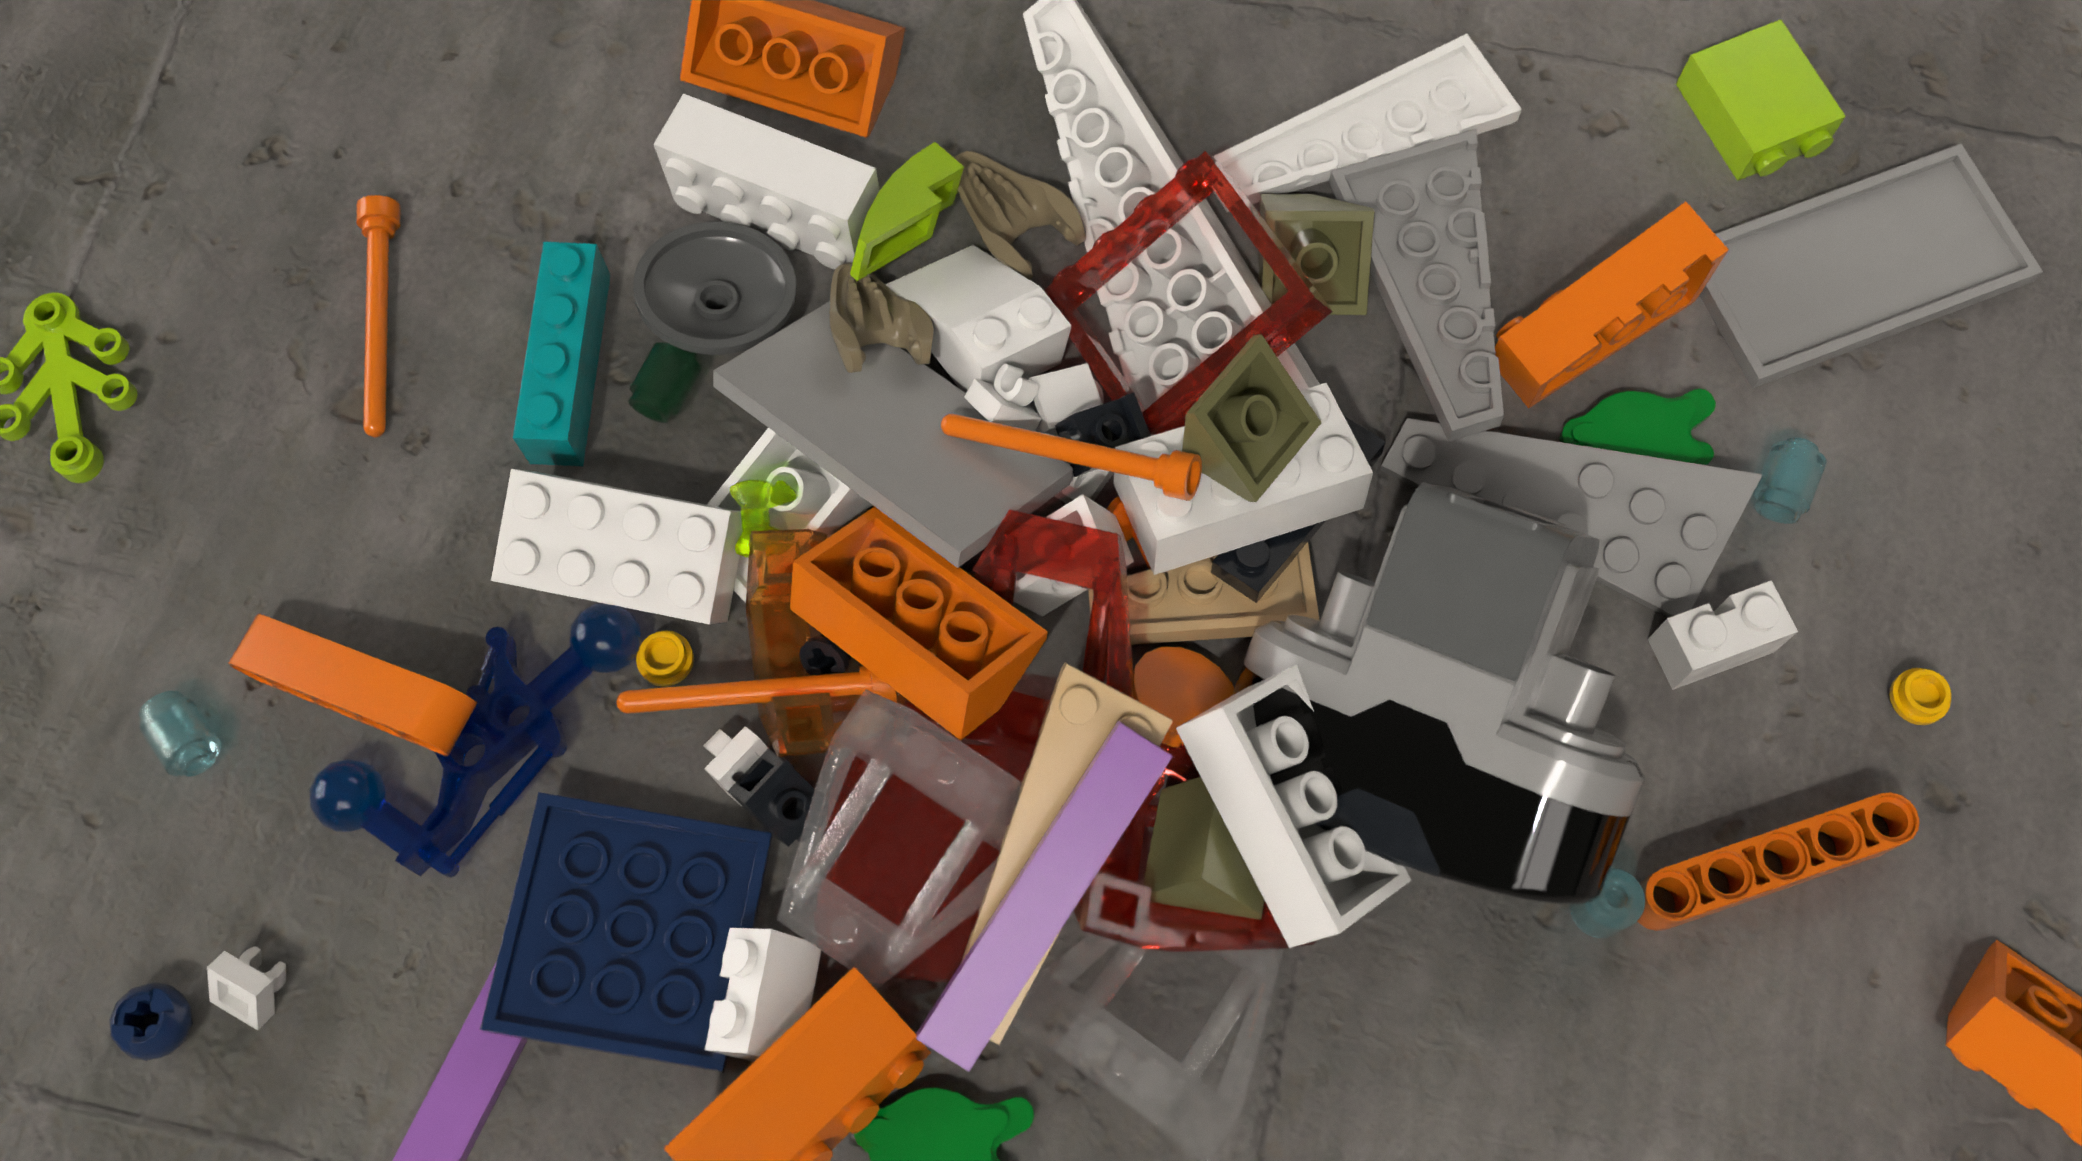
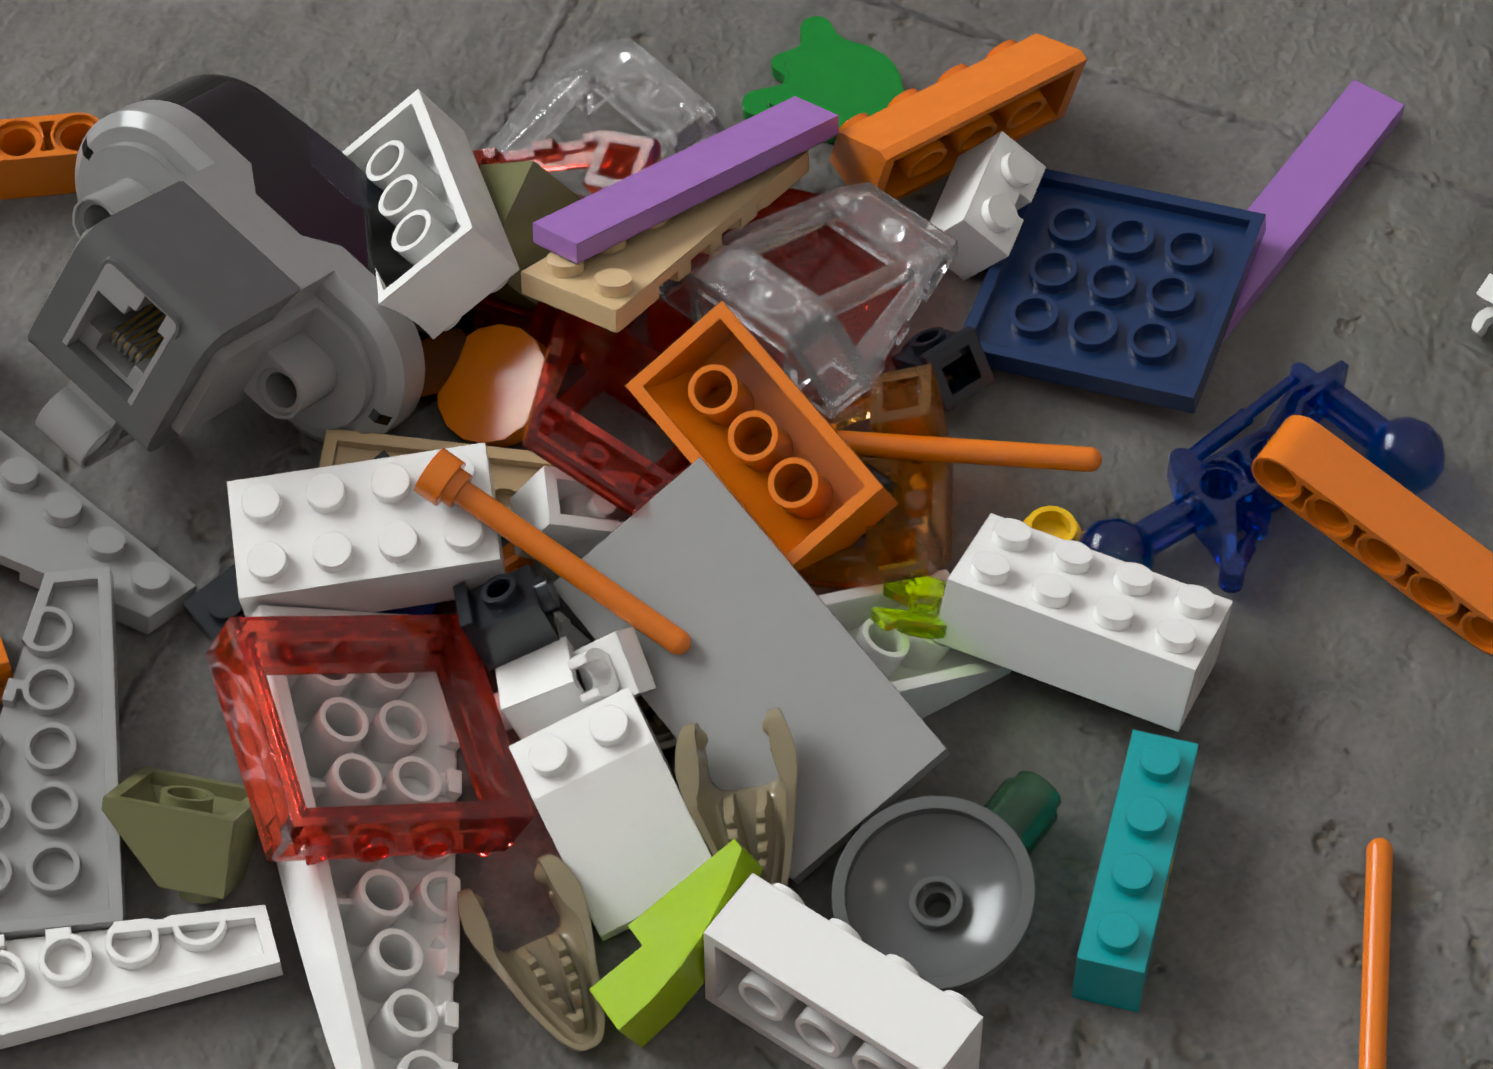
camera: 170 degrees left, 15 degrees down
(733, 756) = (982, 413): white tile -> none
(1249, 422) = (353, 519): olive slope -> none

